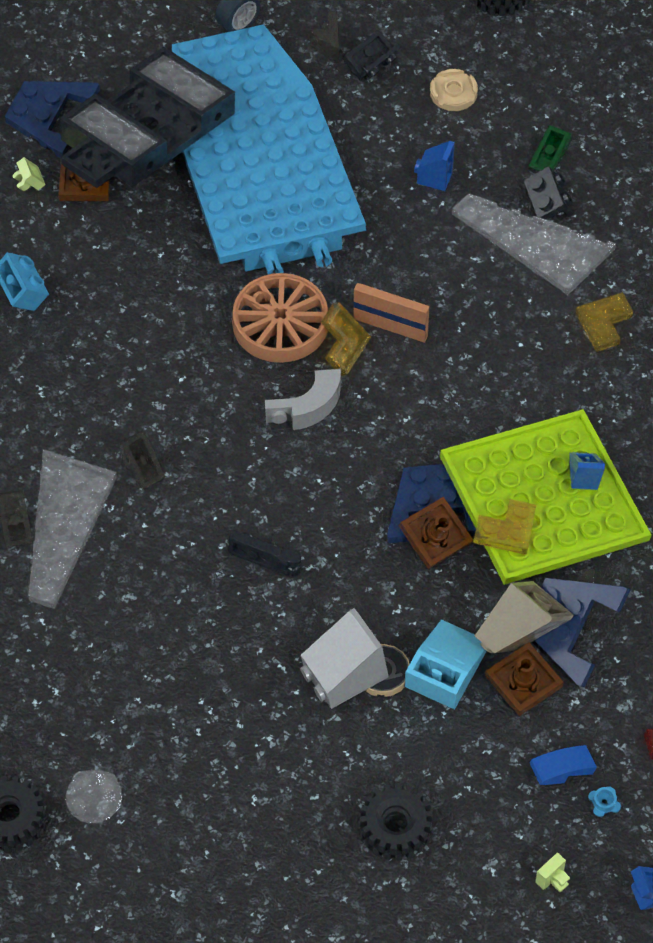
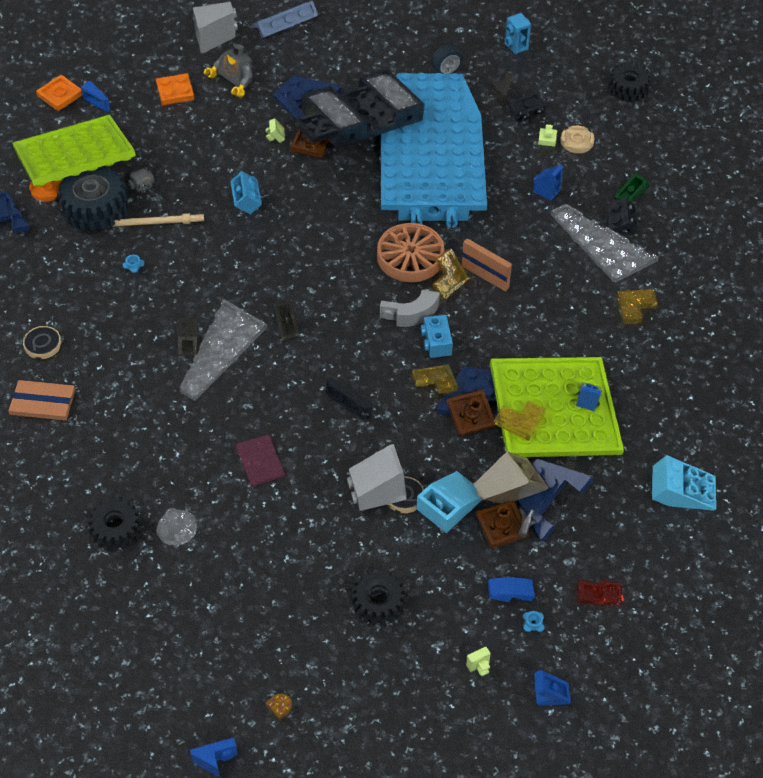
camera: 15 degrees right, 5 degrees down
(172, 671) = (260, 460): none -> clear pink piece
(356, 432) = (437, 335): none -> dark azure brick
(377, 489) = (439, 375): none -> clear yellow plate
(412, 95) = (547, 136): none -> yellowish green tile
(556, 669) = (526, 522): none -> flat silver bar

